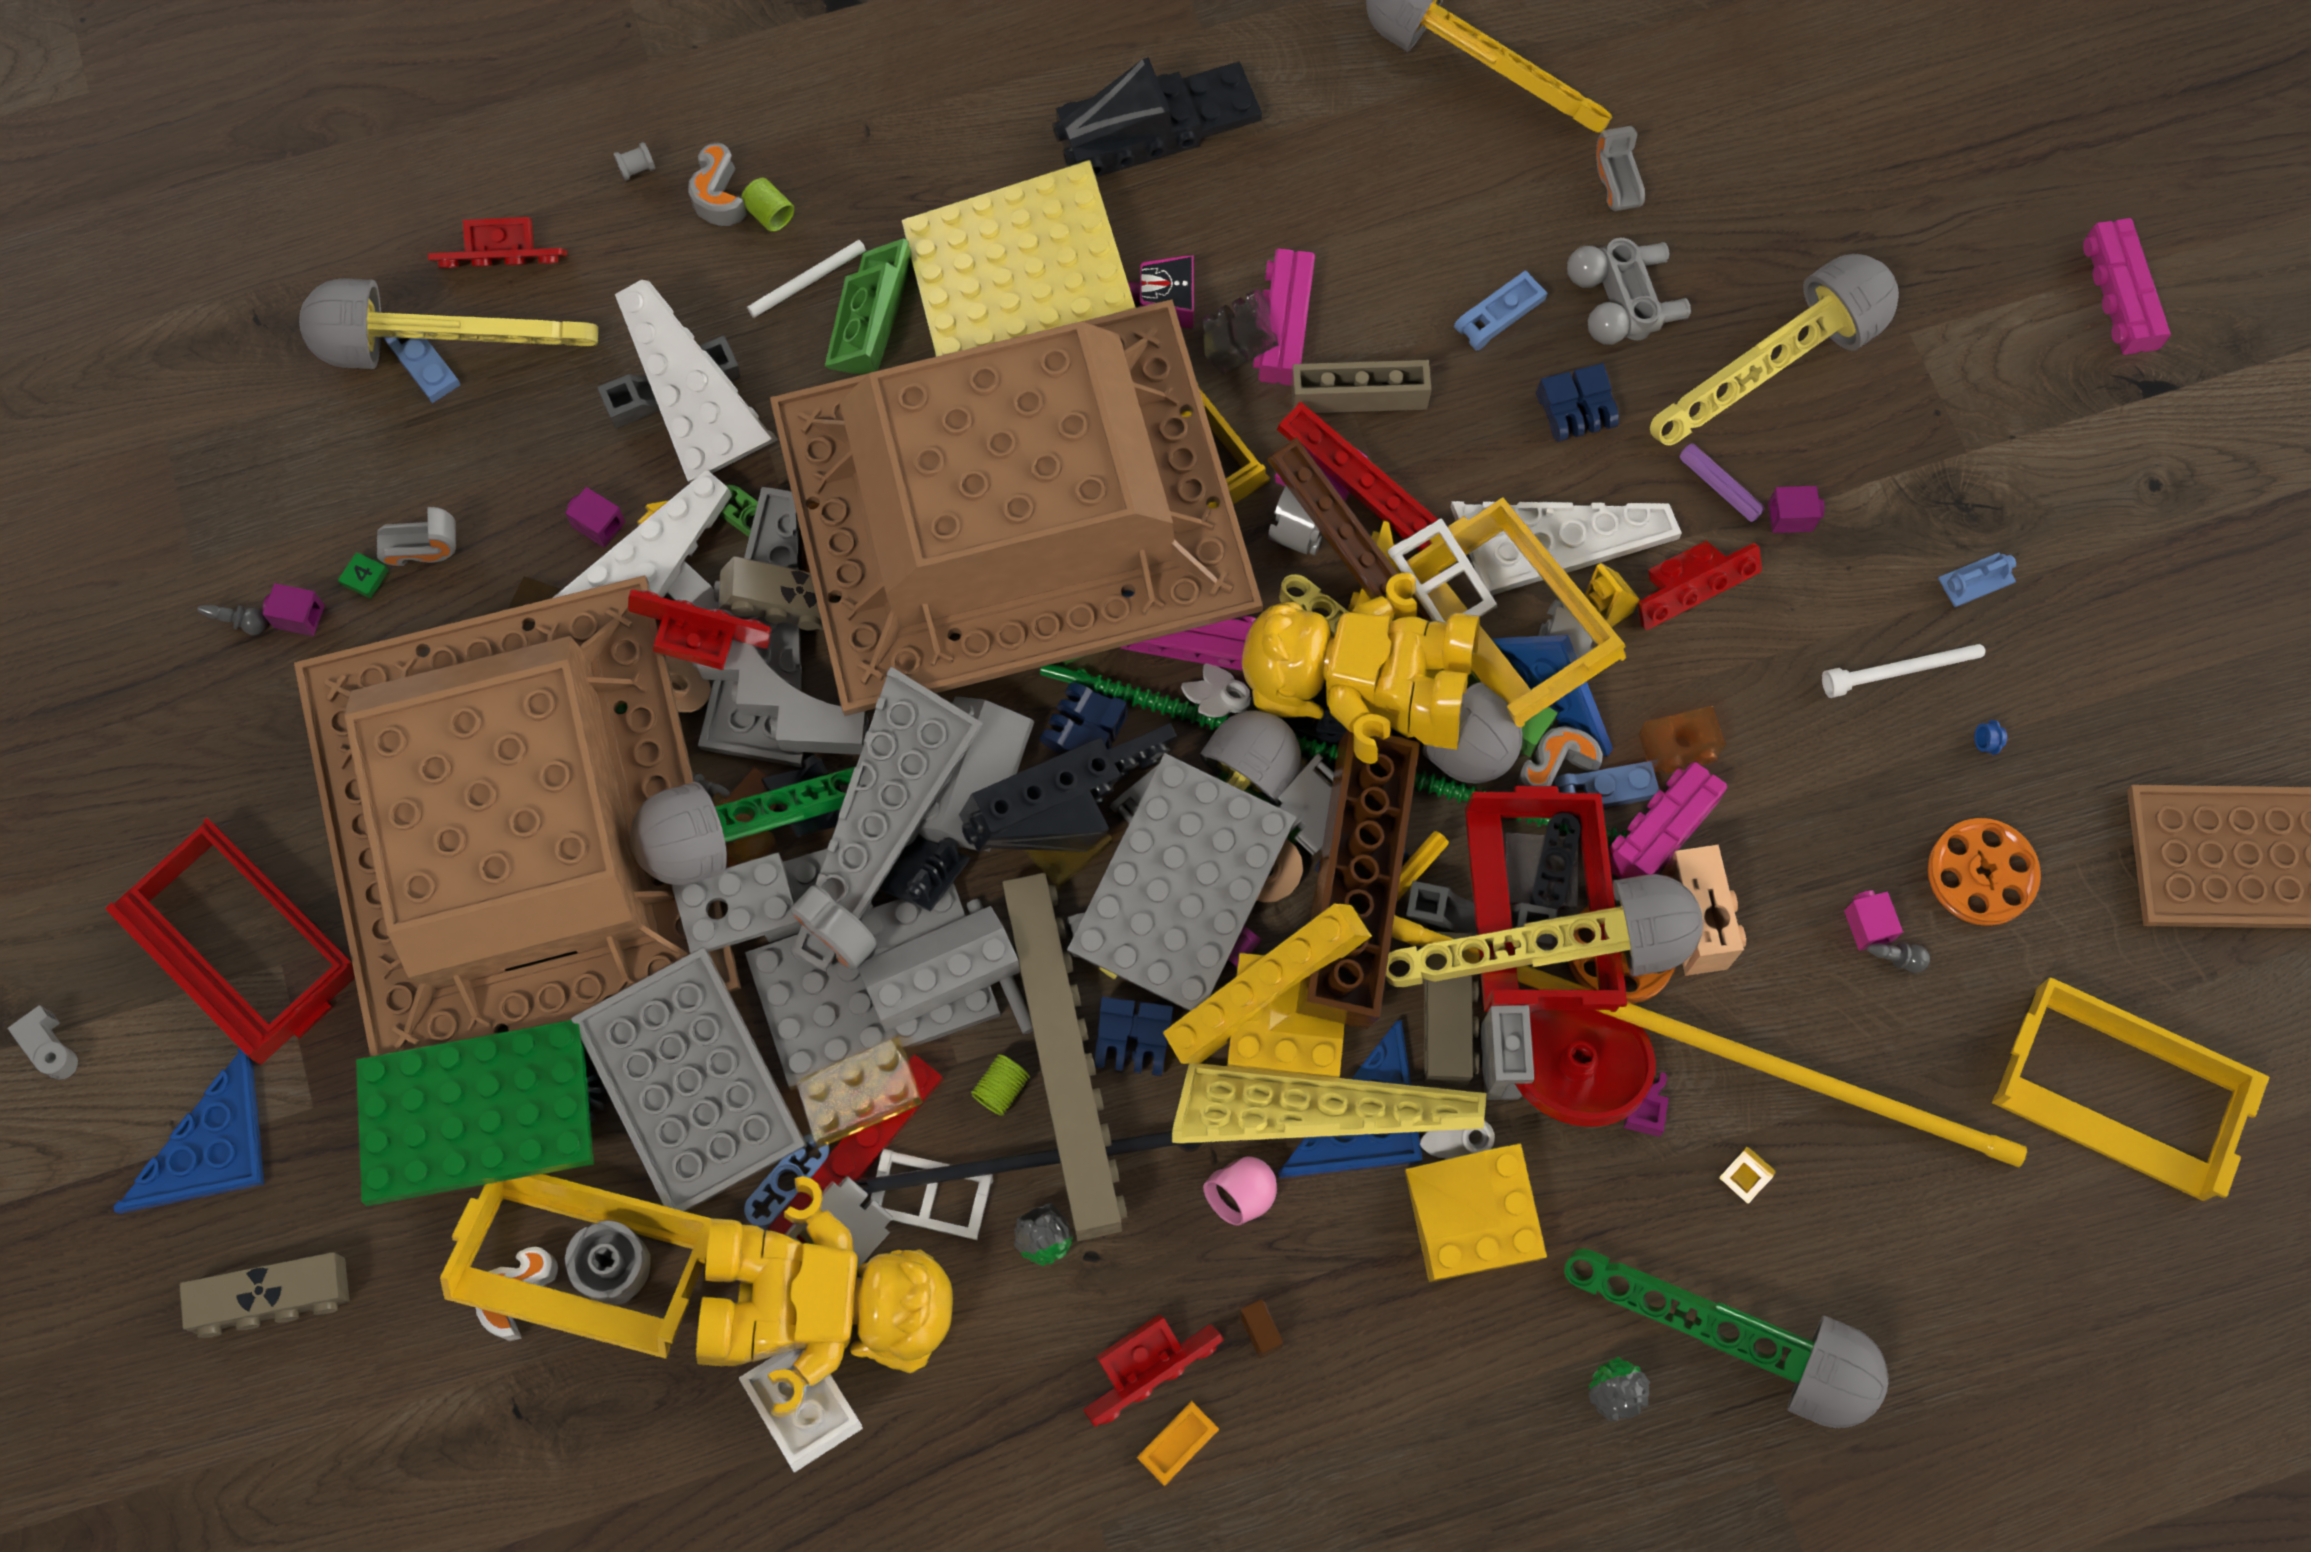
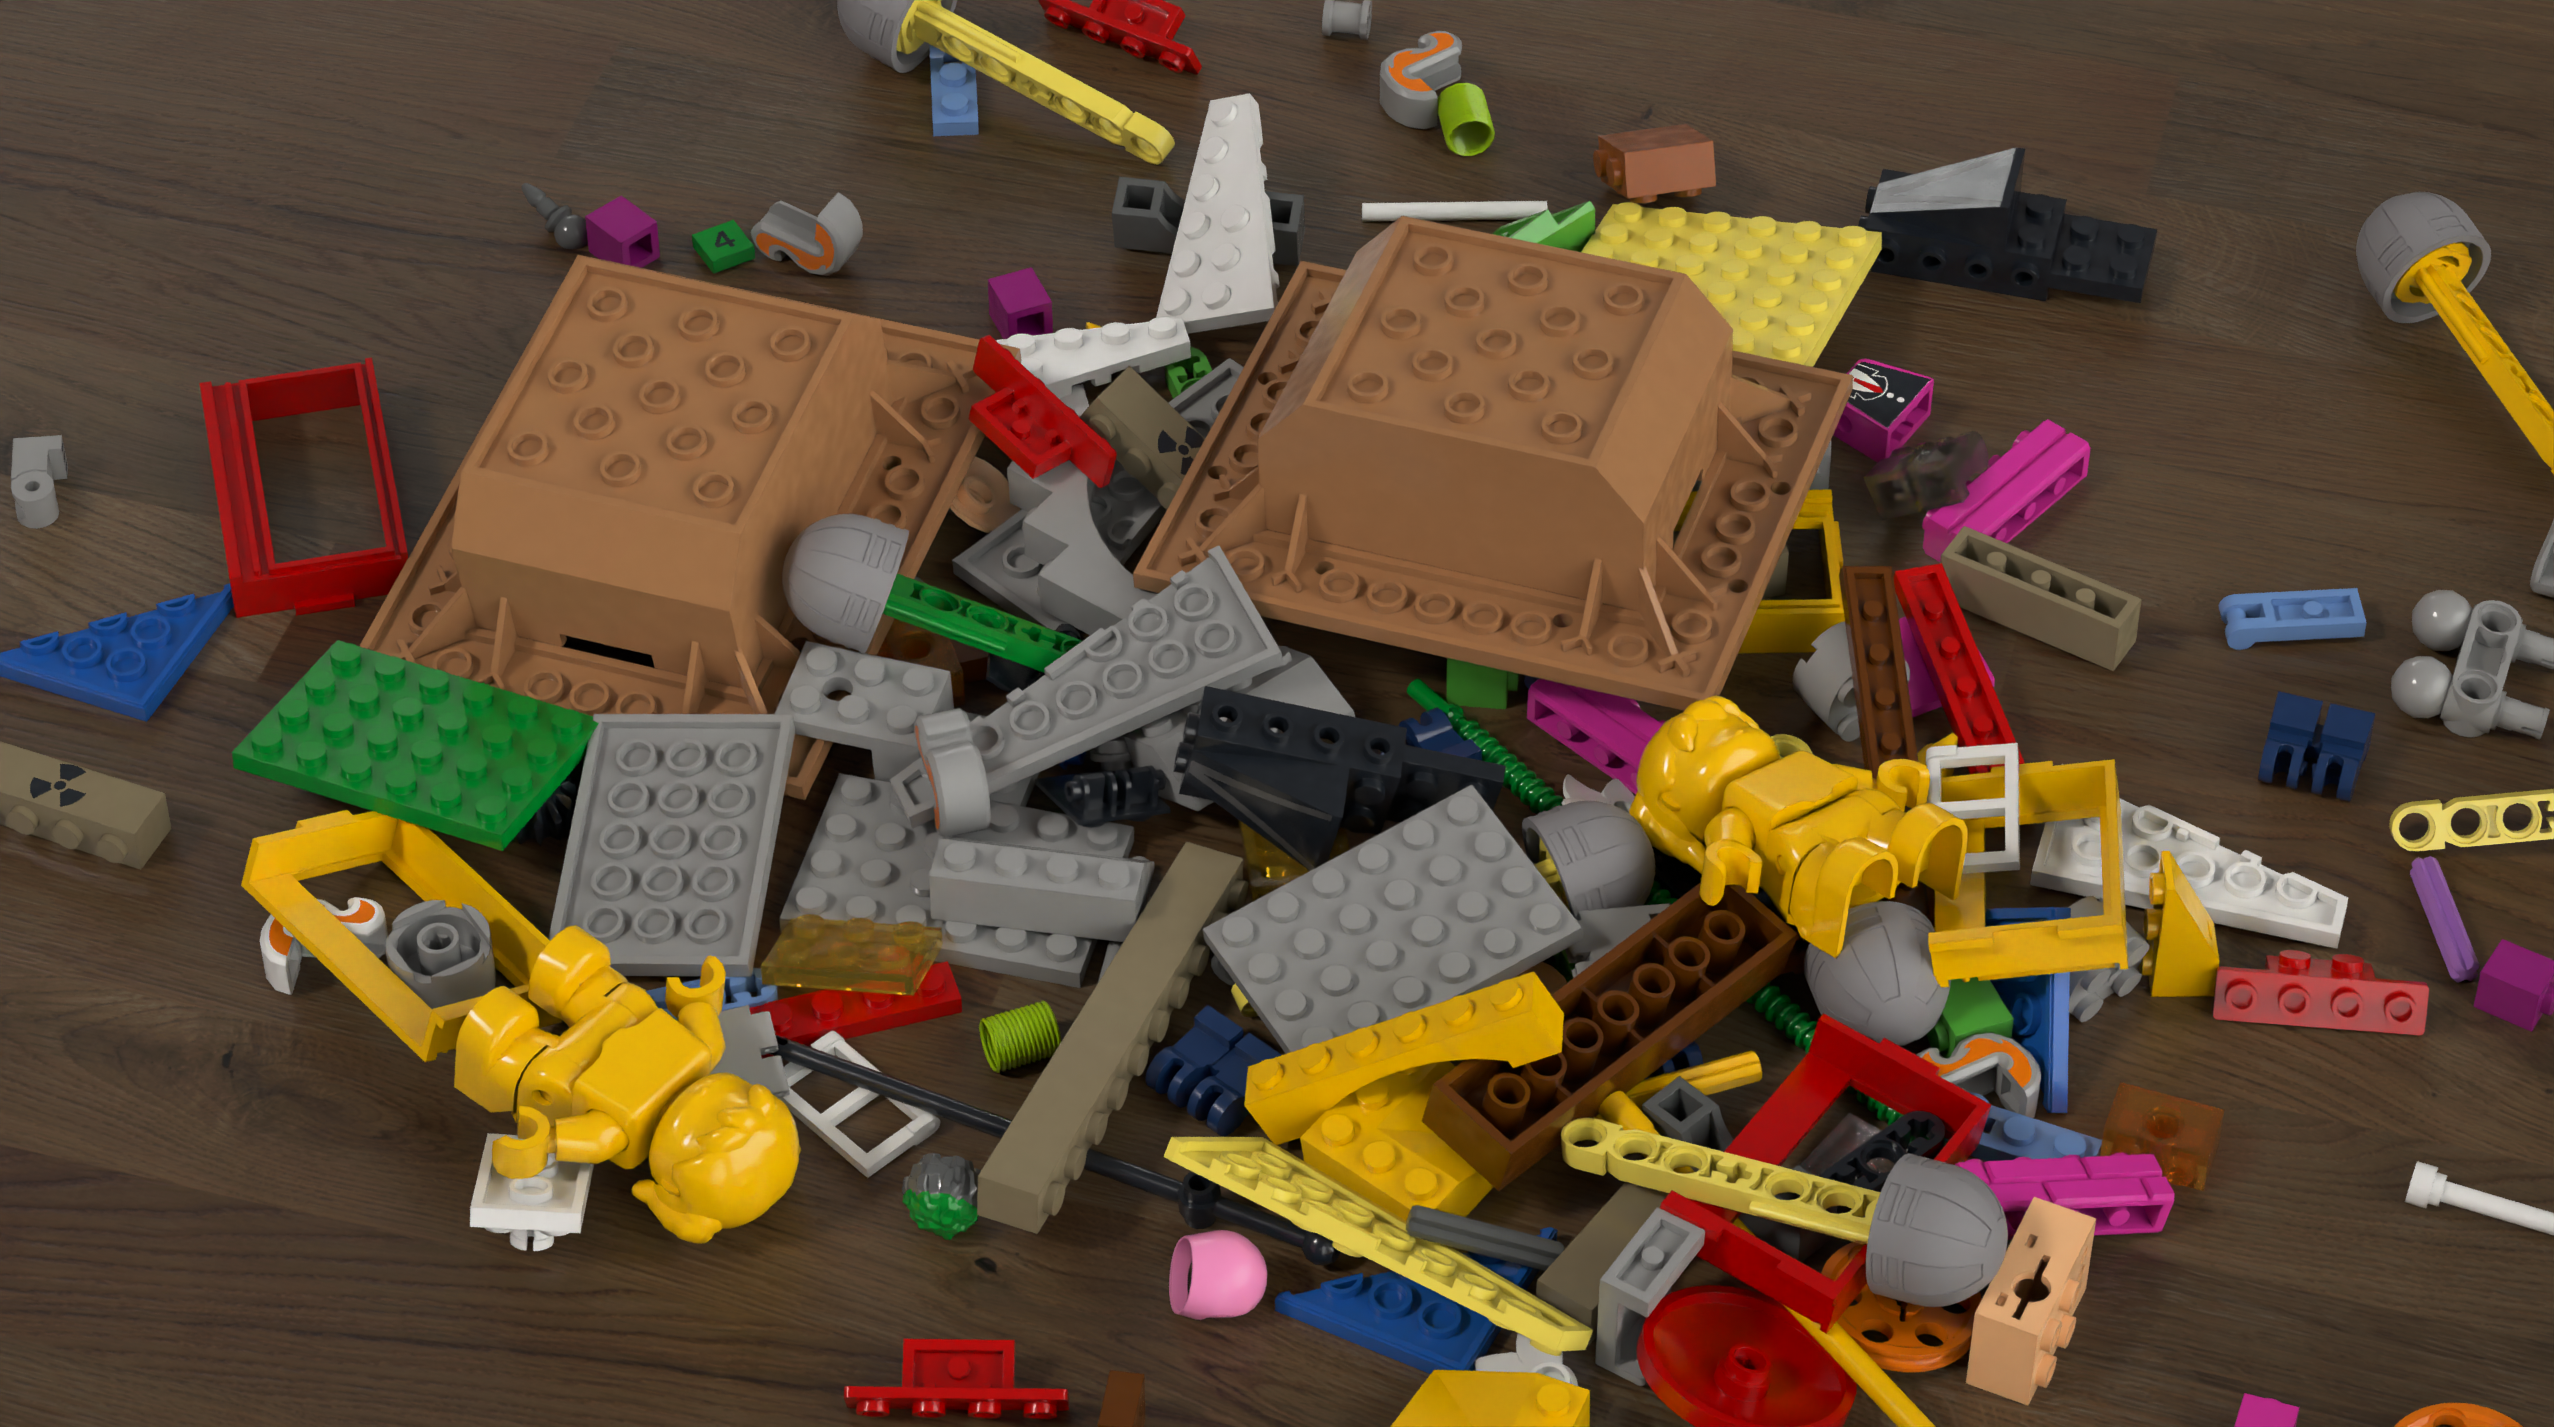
camera: 35 degrees right, 25 degrees down
(913, 177) = (1656, 162): none -> dark orange brick
(1378, 1065) = (1482, 1238): none -> dark grey axle

